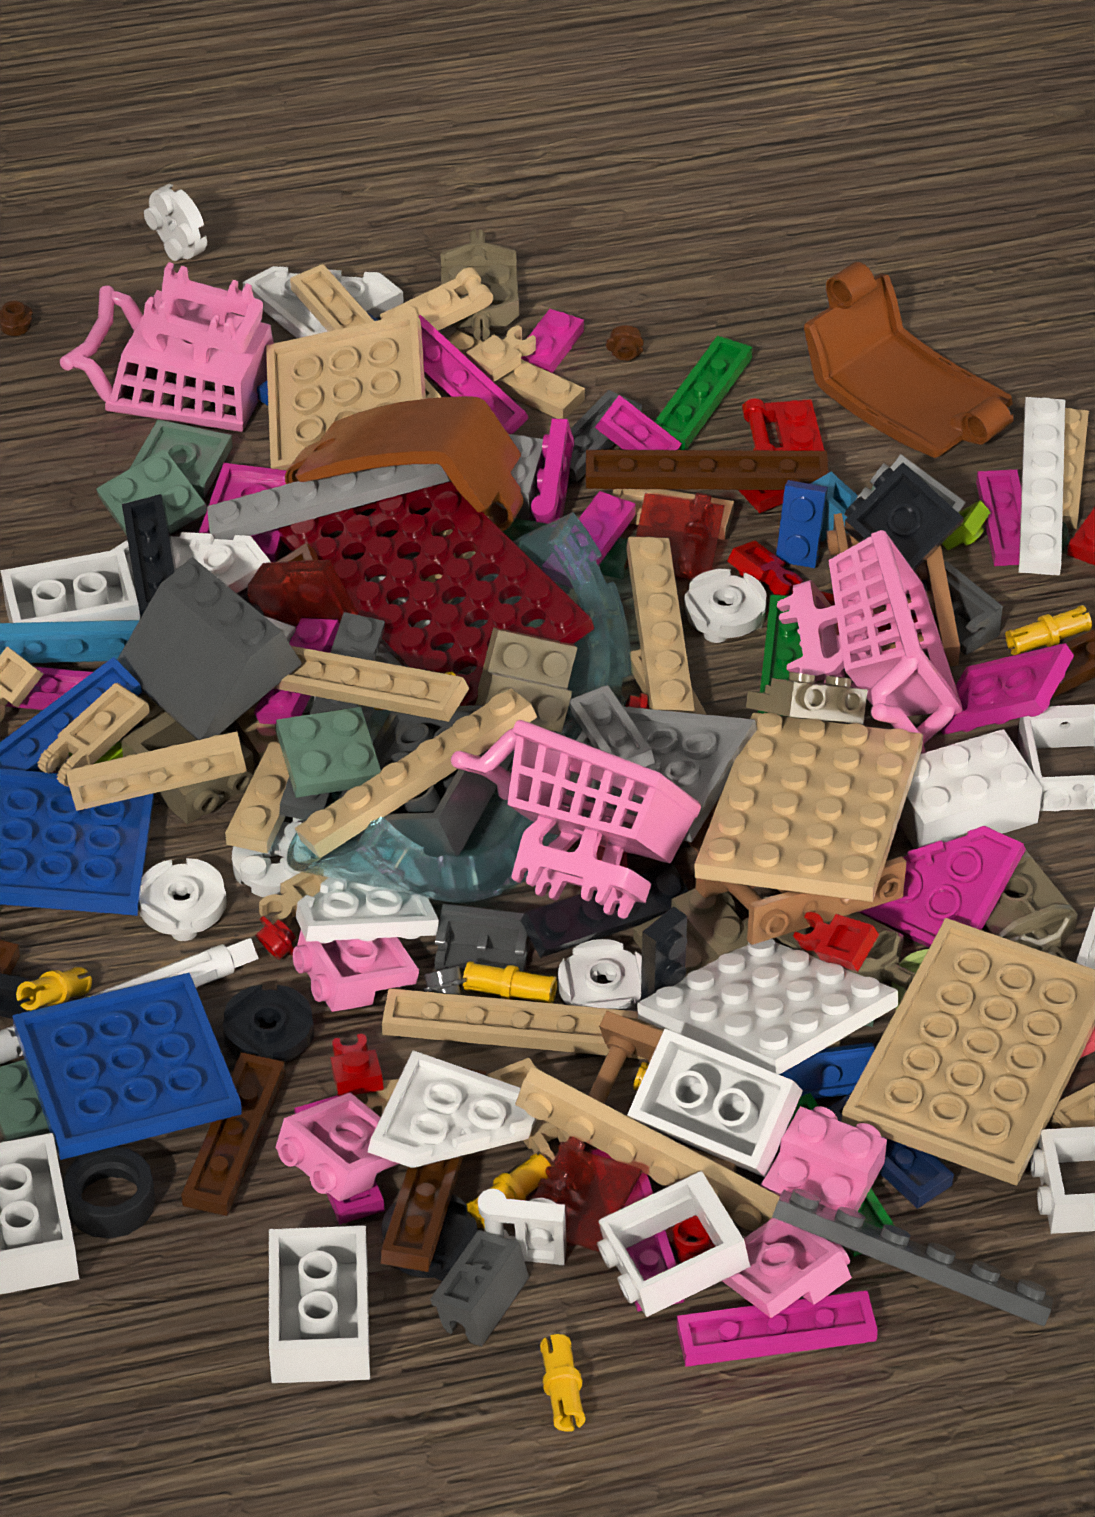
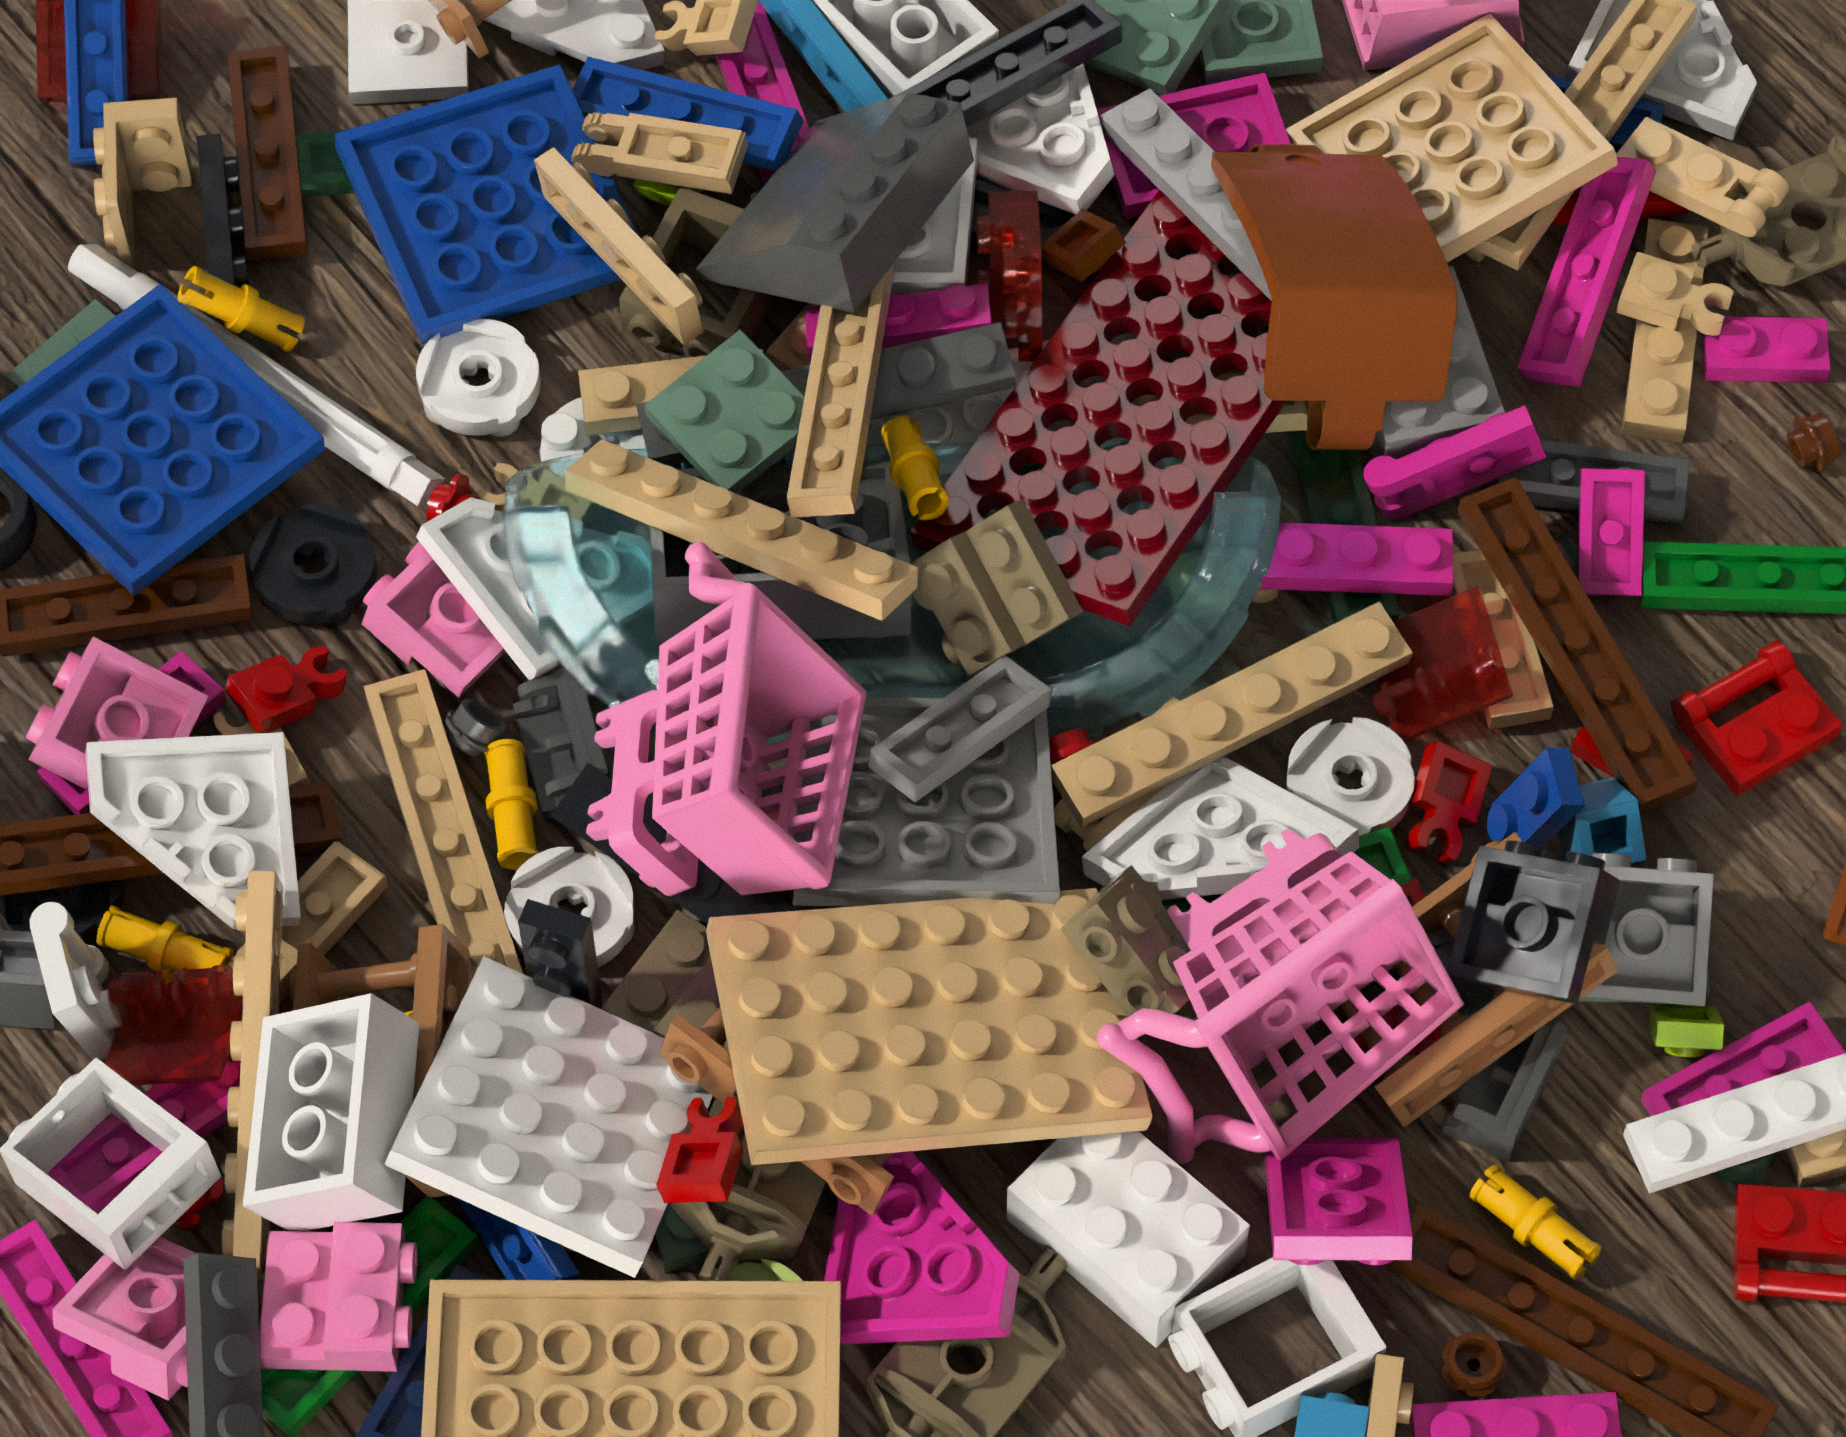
camera: 65 degrees right, 15 degrees up
(739, 658) = (1210, 832): none -> white plate

